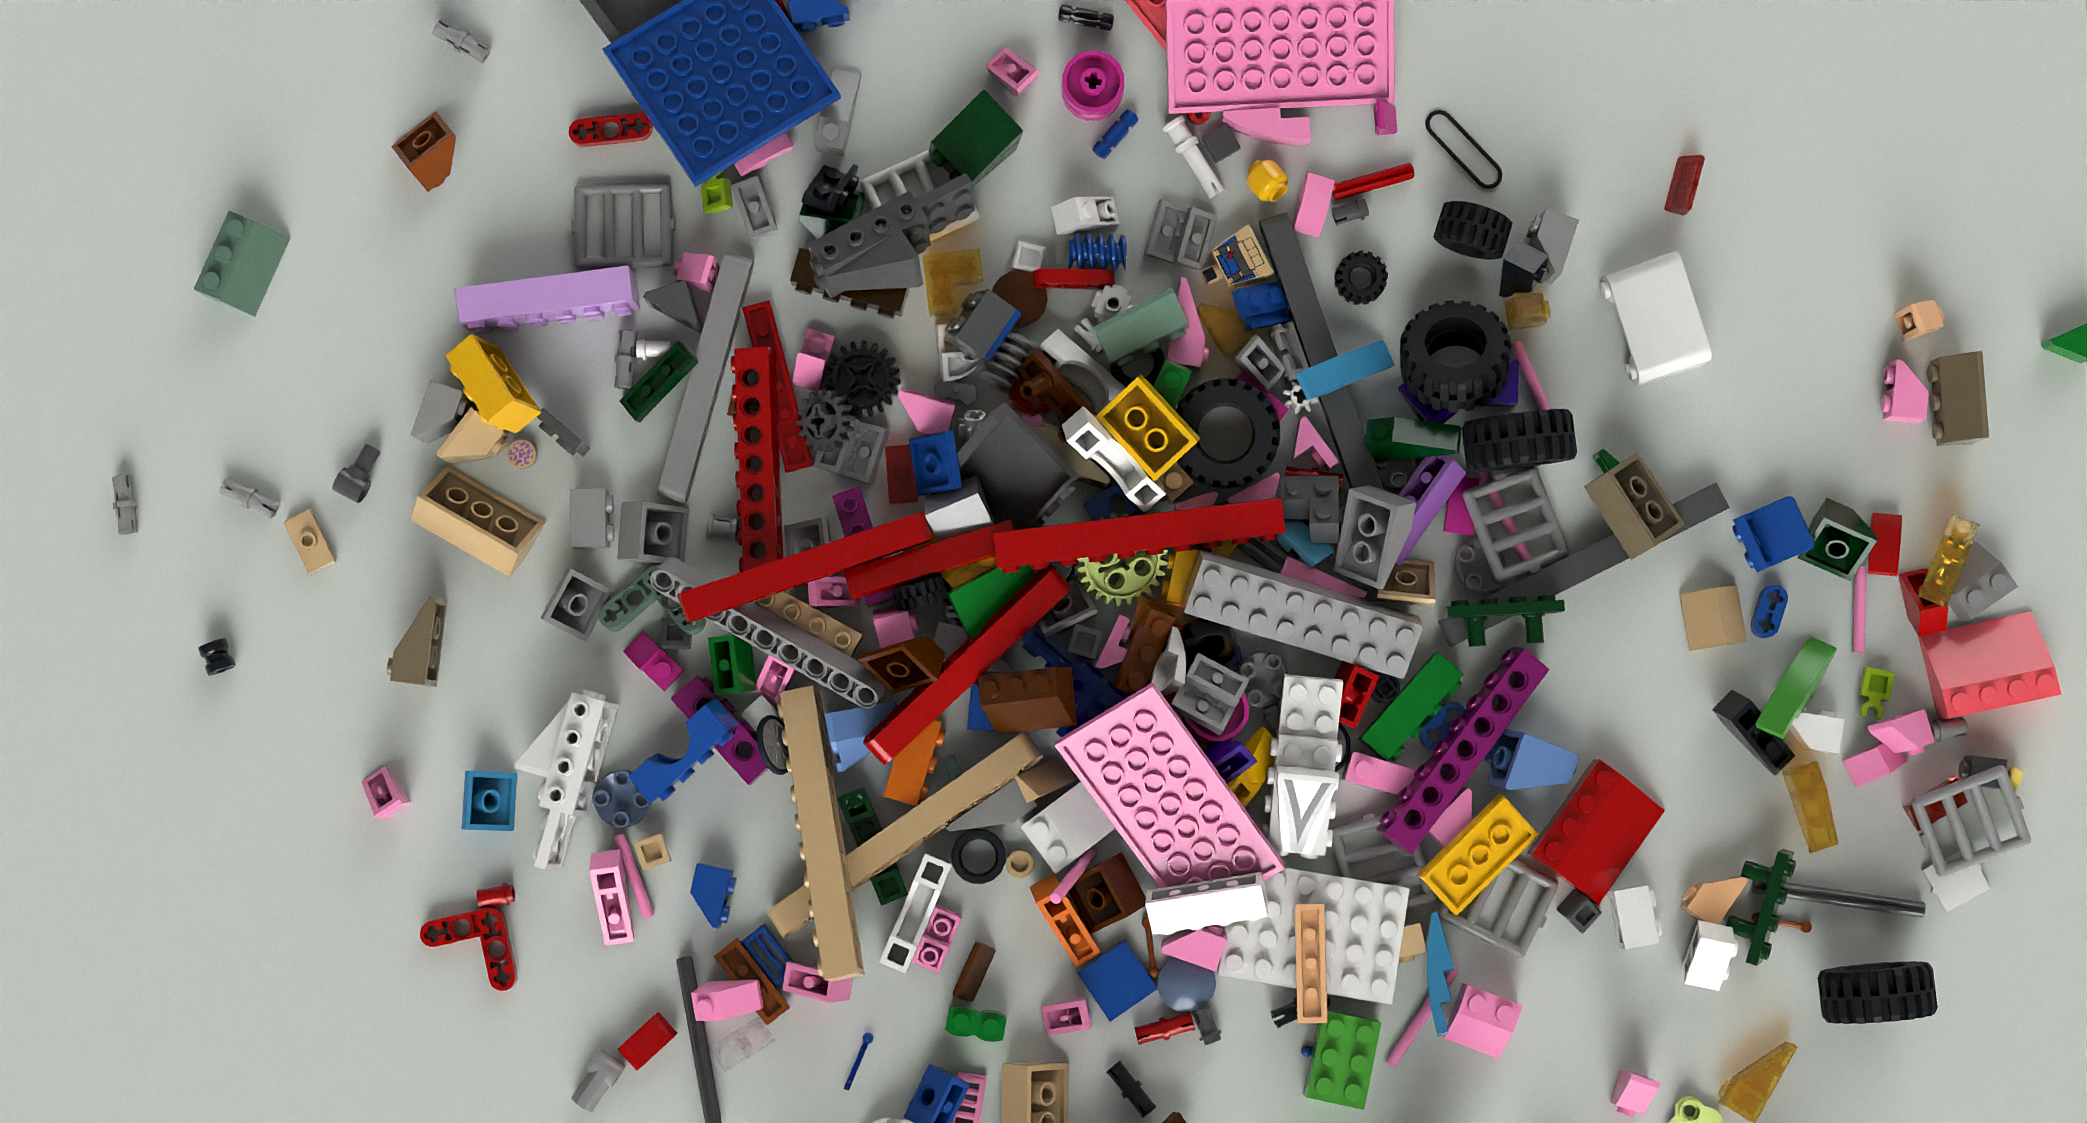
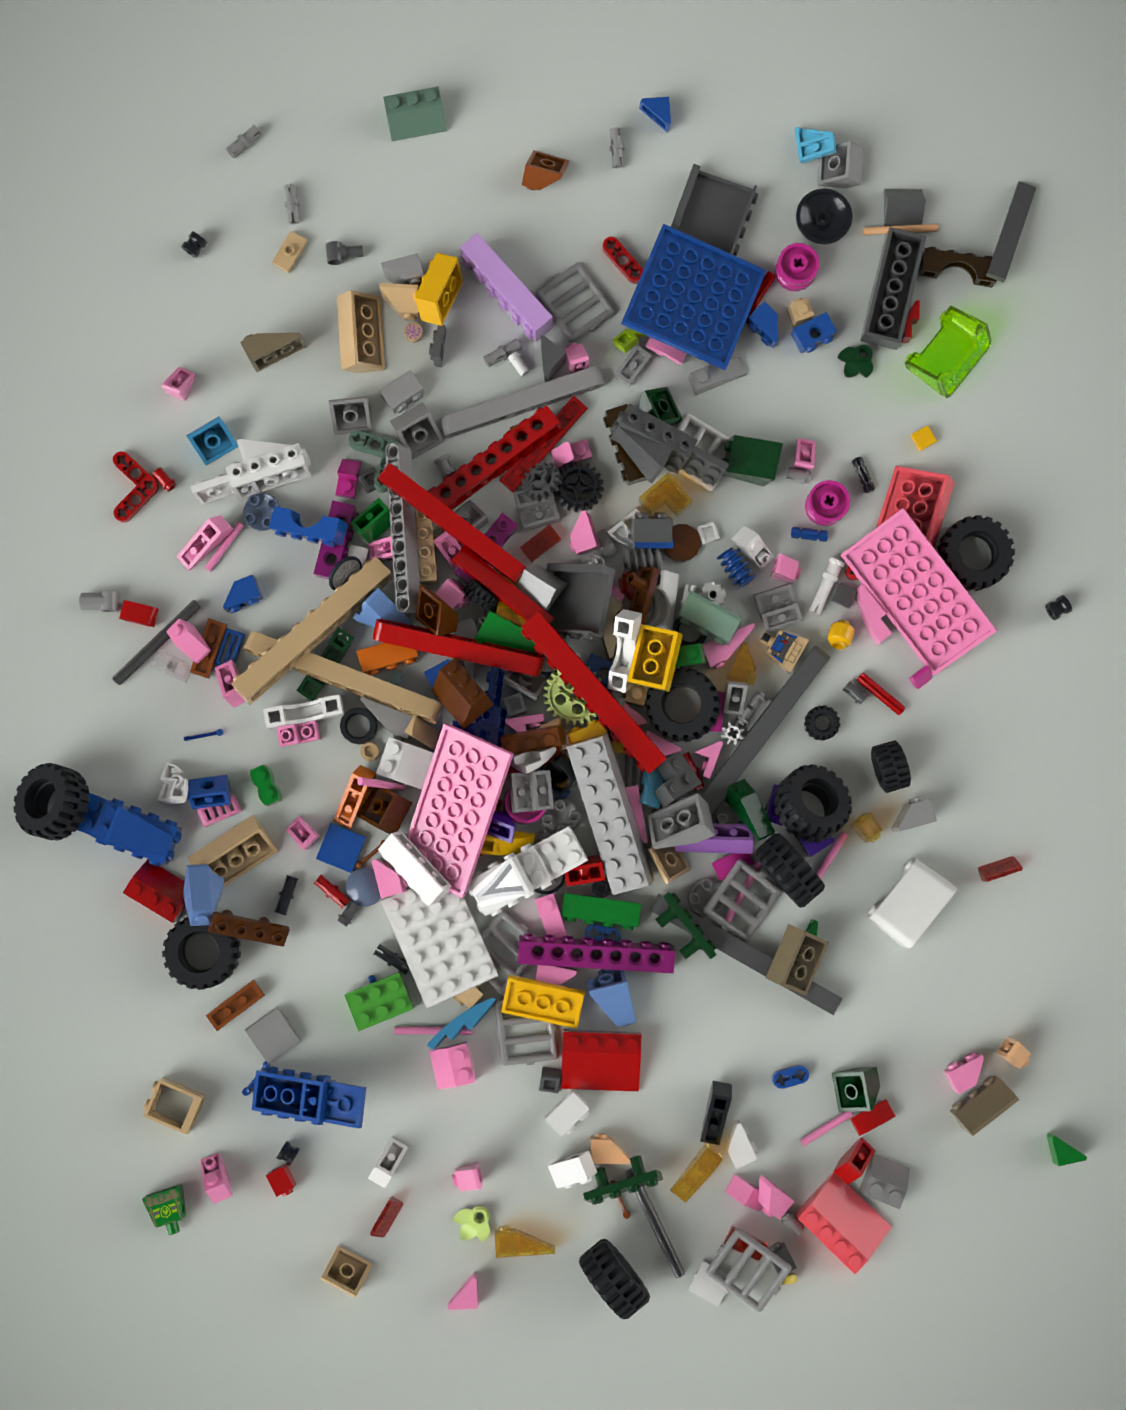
camera: 55 degrees right, 0 degrees up
(652, 851) = (243, 547): tan tile -> none
(658, 381) = (502, 378): dark green tile -> none
(831, 189) = (671, 399): black bracket -> none
(935, 463) = (558, 556): blue tile -> none
(974, 972) = (293, 765): reddish brown slope -> none
(1033, 96) = (799, 475): none -> light grey pin
(1073, 278) = (712, 564): red beam -> none
(1140, 193) = (785, 569): none -> bright pink slope
(1261, 306) = (768, 678): blue plate -> none
(1311, 963) = (419, 947): light nougat plate -> none
(1313, 204) = (844, 669): bright pink slope -> none
(1344, 370) = (763, 747): dark azure slope -> none
(1449, 151) = (926, 731): black piece -> none
(1523, 270) = (887, 808): black slope -> none
(1713, 617) = (765, 1047): tan slope -> none
(1773, 533) = (835, 1049): blue bracket -> none
(1796, 687) = (757, 1119): bright green slope -> none
(1875, 686) = (788, 1165): lime plate -> none
(1948, 560) = (887, 1159): clear yellow slope -> none

